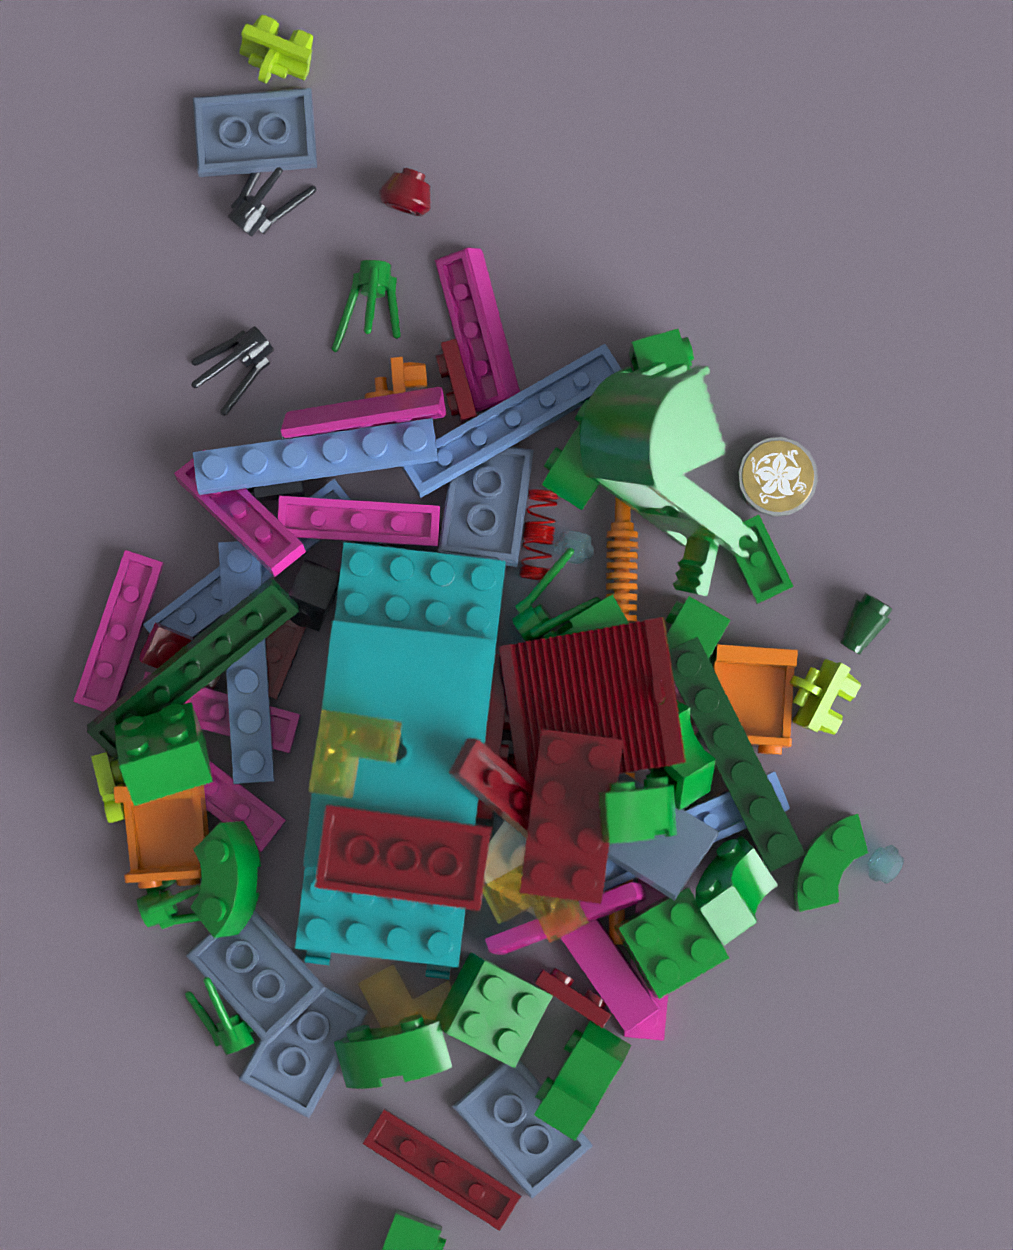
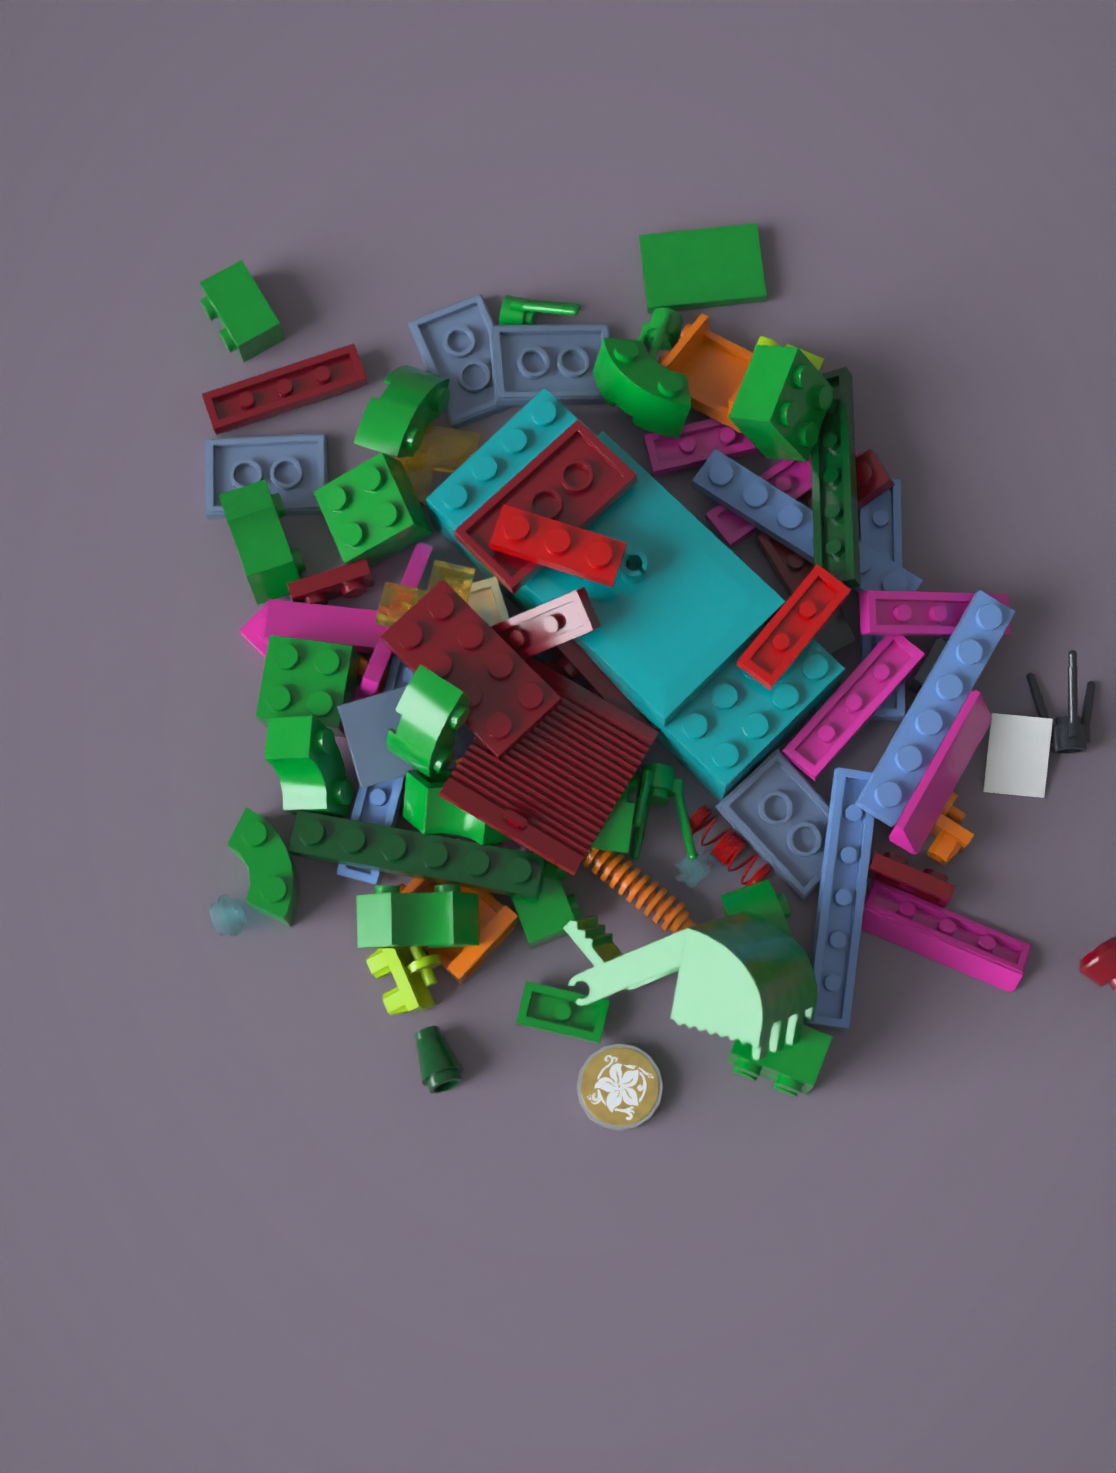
camera: 135 degrees right, 10 degrees down
(78, 919) = (702, 268): none -> green tile
(119, 631) = (910, 459): dark pink plate -> none
(296, 374) = (1018, 755): none -> white sticker
(342, 742) = (675, 529): clear yellow plate -> none
(347, 599) = (793, 627): none -> red plate
(373, 281) = (1052, 876): green plant -> none
(432, 817) = (558, 545): none -> red plate
(782, 712) = (417, 919): none -> green brick

